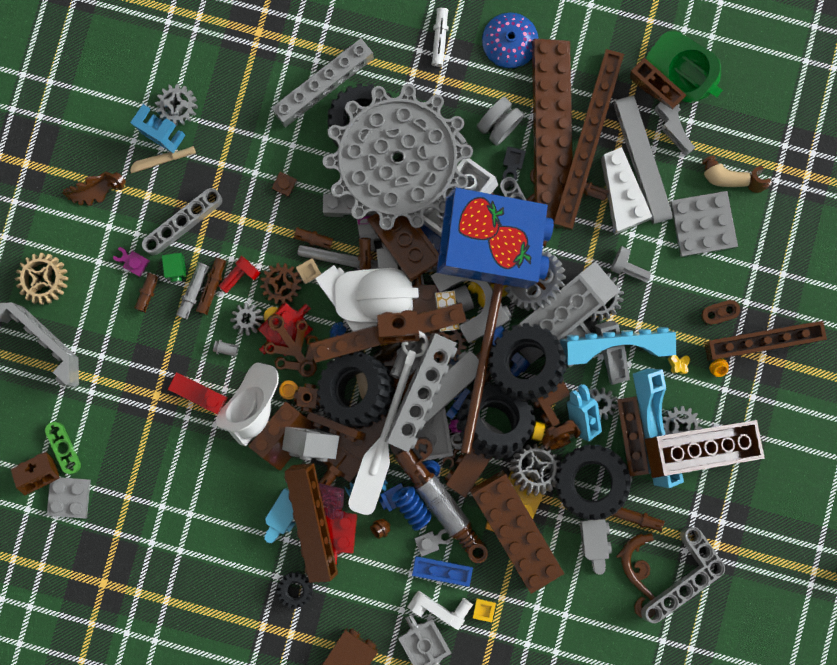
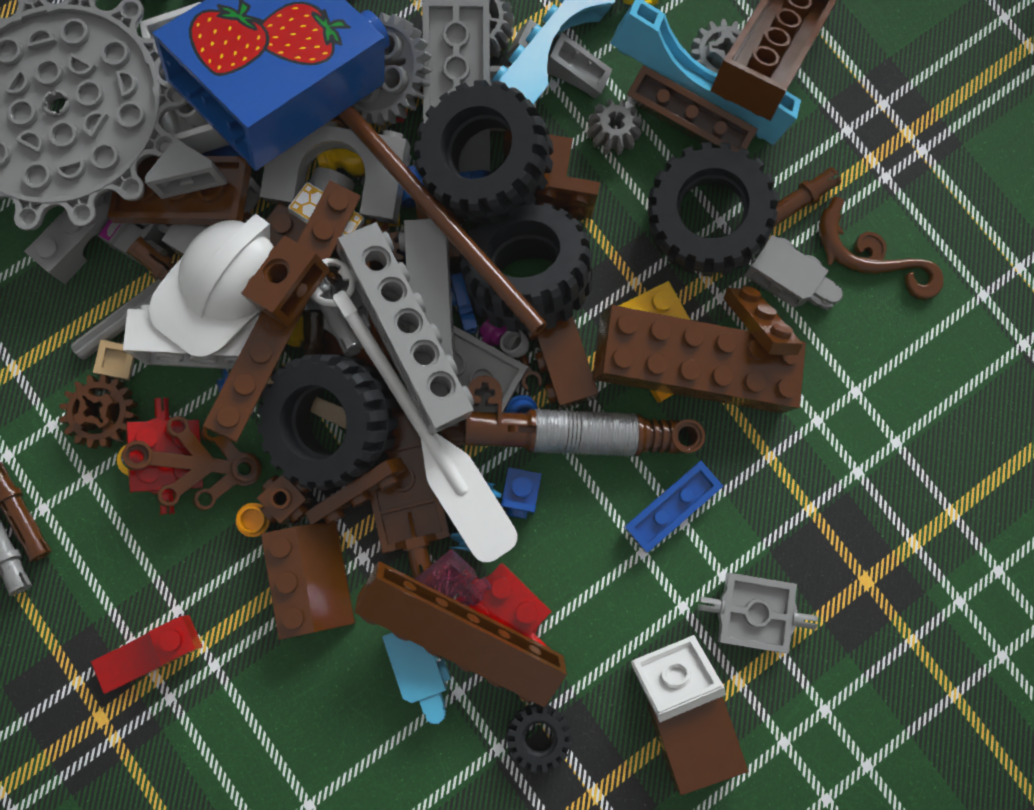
camera: 60 degrees left, 5 degrees down
(225, 348) = (118, 563): light grey pin -> none
(240, 318) = (99, 485): light grey gear -> none
(243, 266) = (29, 447): red piece -> none
(250, 406) = (228, 590): white piece -> none
(310, 443) = (349, 545): light grey brick -> none
(313, 238) = (77, 319): reddish brown pin -> none
(367, 631) = (677, 678): none -> white plate
(380, 528) = (547, 545): reddish brown plate -> none
(412, 238) = (182, 172): none -> light grey slope
(413, 507) = (554, 475): blue piece -> none
(422, 602) = (694, 569): white beam -> none
(429, 543) = (619, 494): light grey plate -> none
(484, 610) = (770, 492): yellow plate -> none
(538, 431) = (591, 224): yellow beam -> none
(538, 484) = (641, 281): light grey gear -> none
(557, 546) = (762, 321): none -> reddish brown plate
(560, 436) = (614, 202): reddish brown plate -> none
(584, 412) = (611, 149): medium azure hinge -> none
(689, 579) = (931, 169): light grey beam -> none

